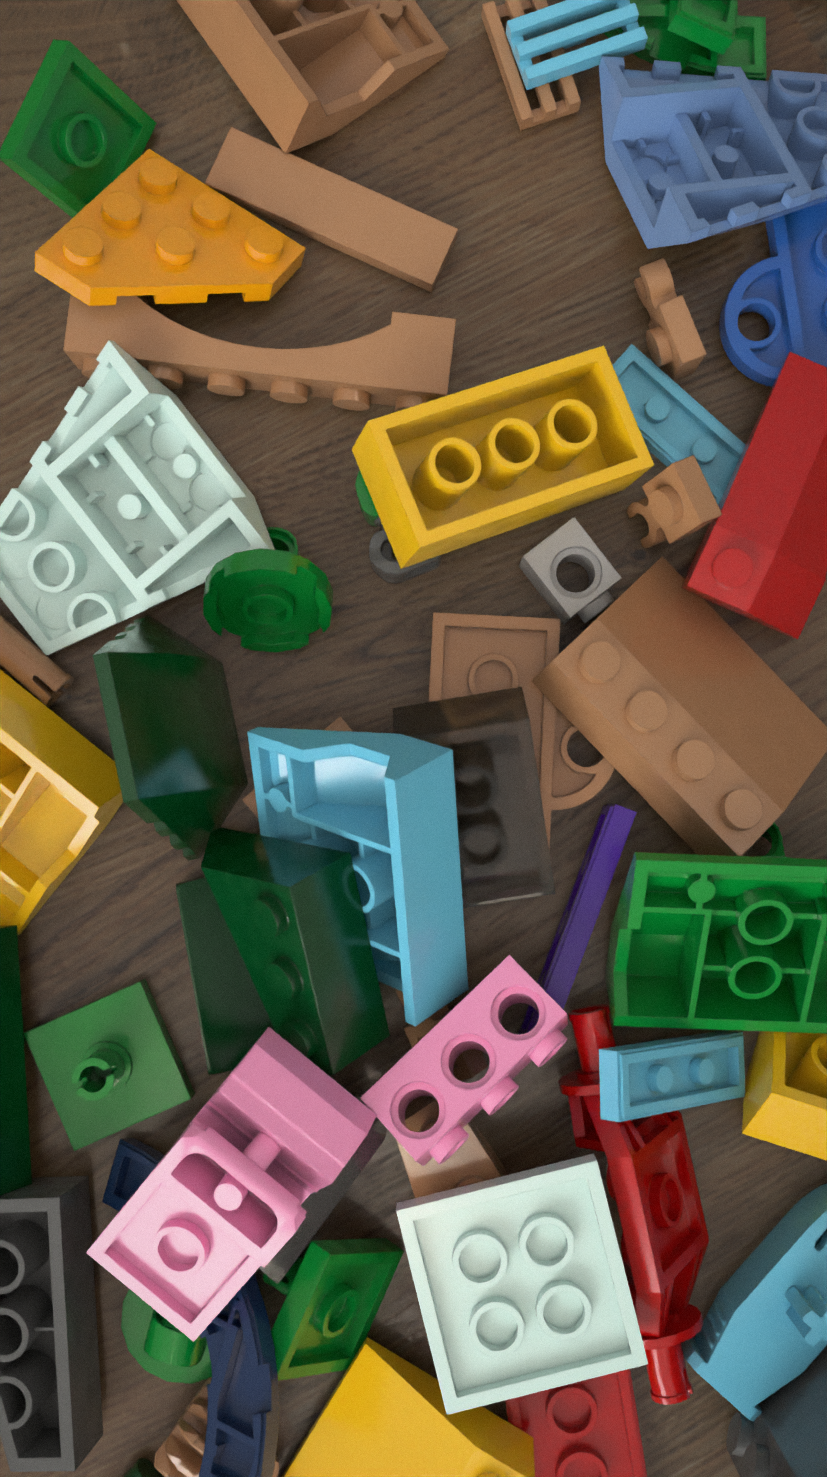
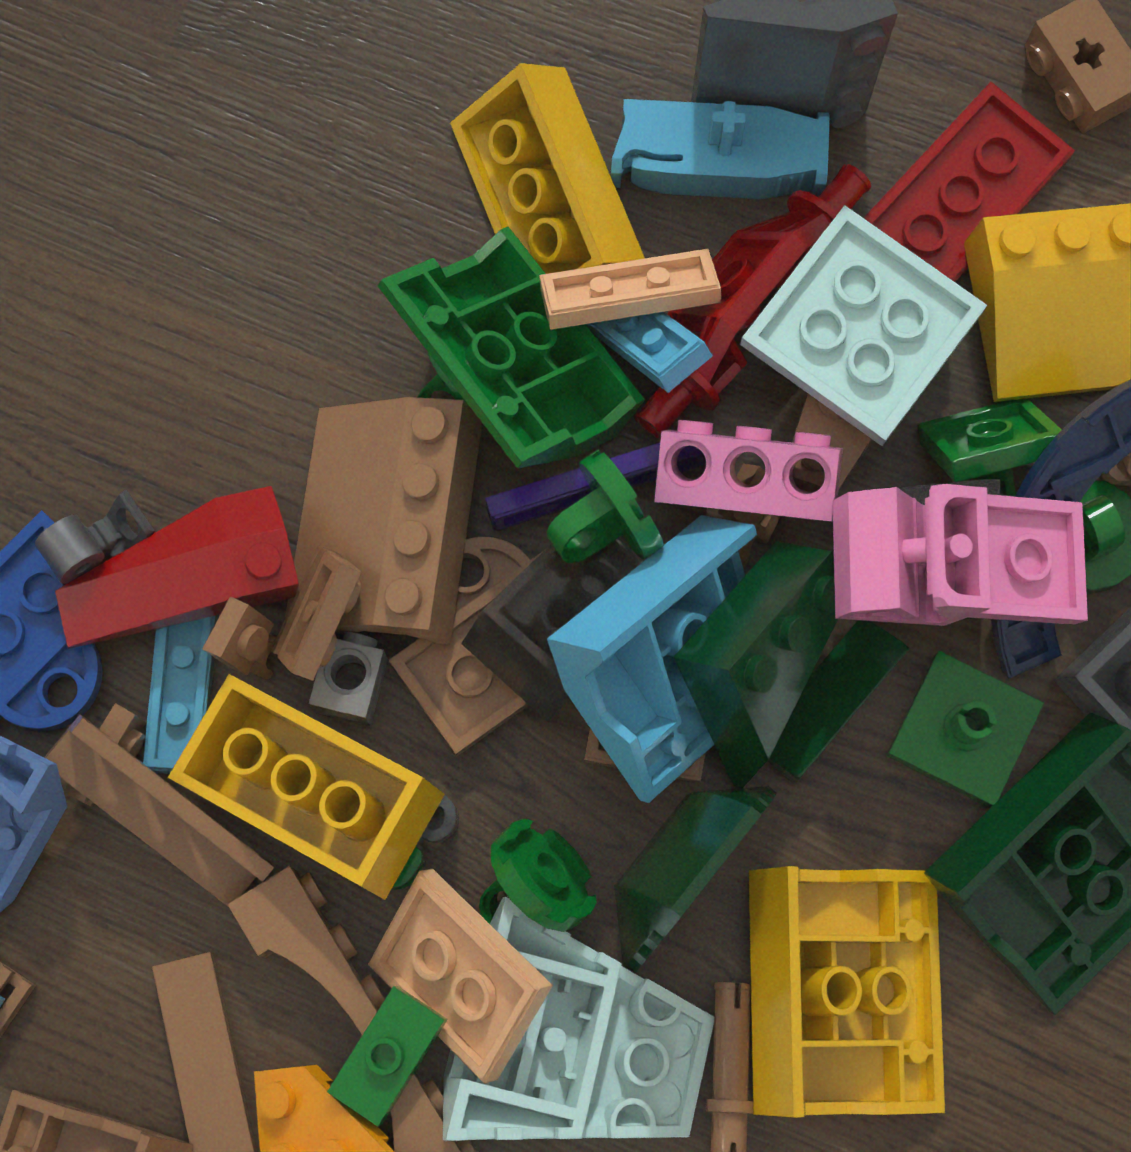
camera: 135 degrees left, 10 degrees down
(220, 351) = (387, 1055): none -> green plate
(238, 463) = (463, 971): none -> light nougat tile
(533, 897) = (603, 516): none -> green tile
(588, 316) = (156, 812): none -> medium nougat fence
(656, 595) = (309, 628): none -> medium nougat plate
(726, 1096) = (630, 289): none -> light nougat tile

